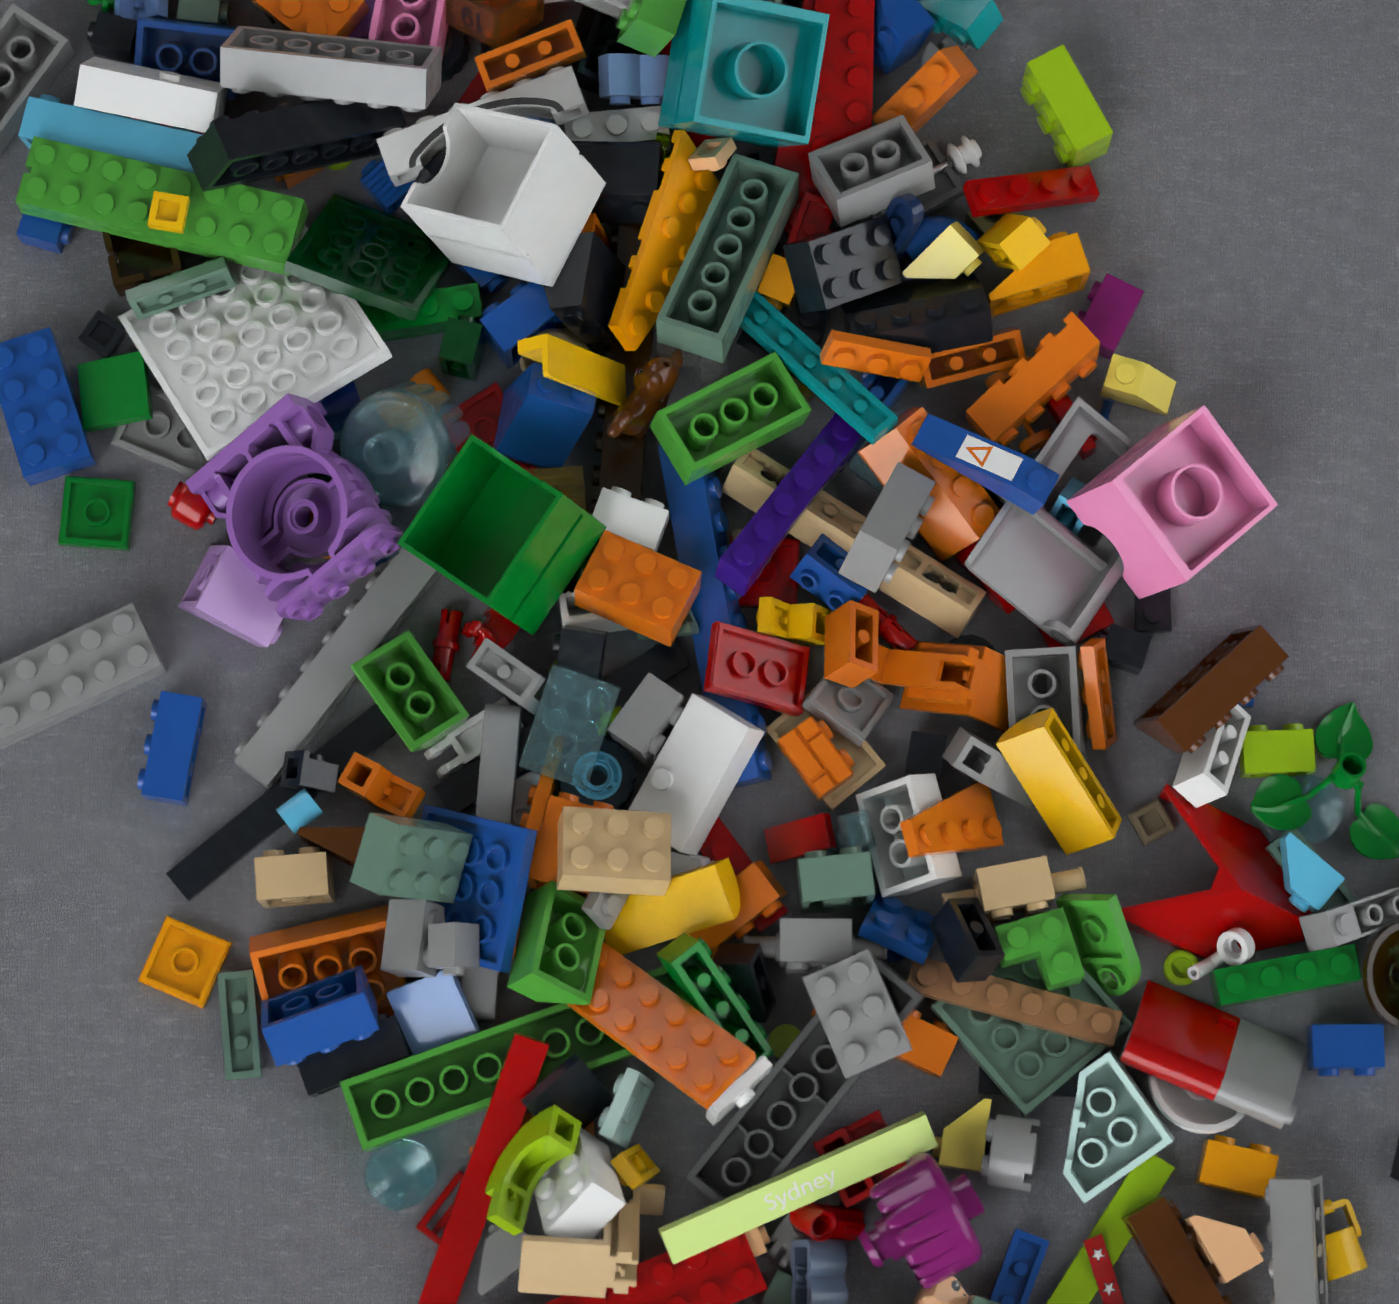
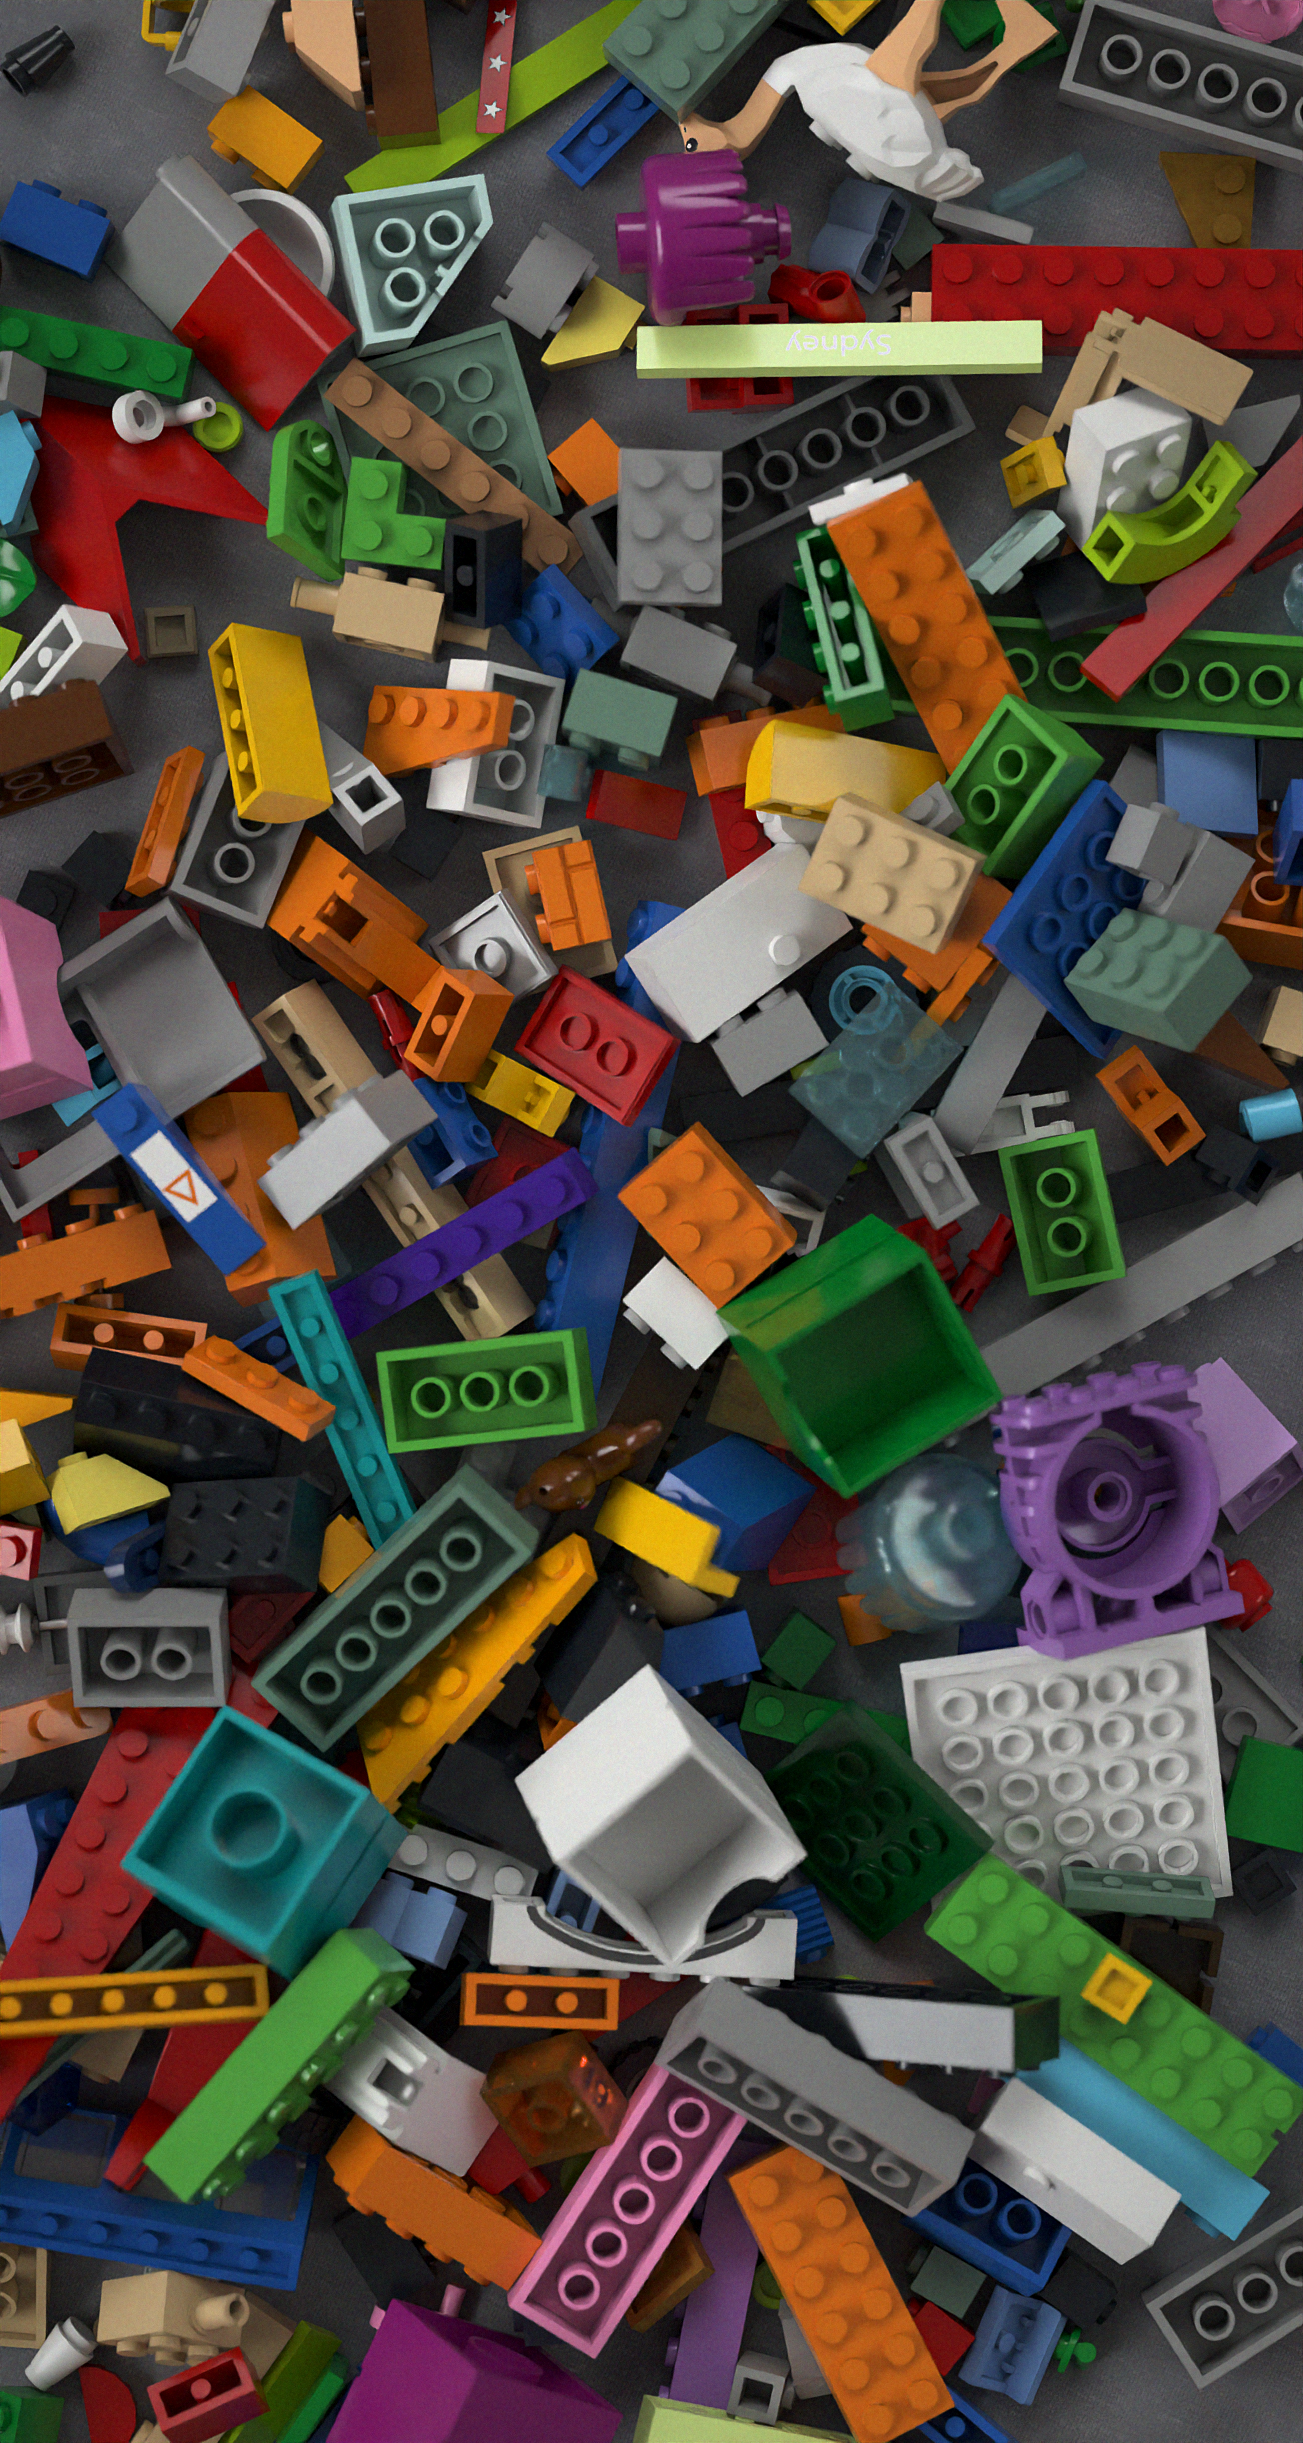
camera: 155 degrees left, 10 degrees up
(712, 154) = (356, 1759): light nougat plate -> none
(782, 1038) = (770, 556): lime tile -> none

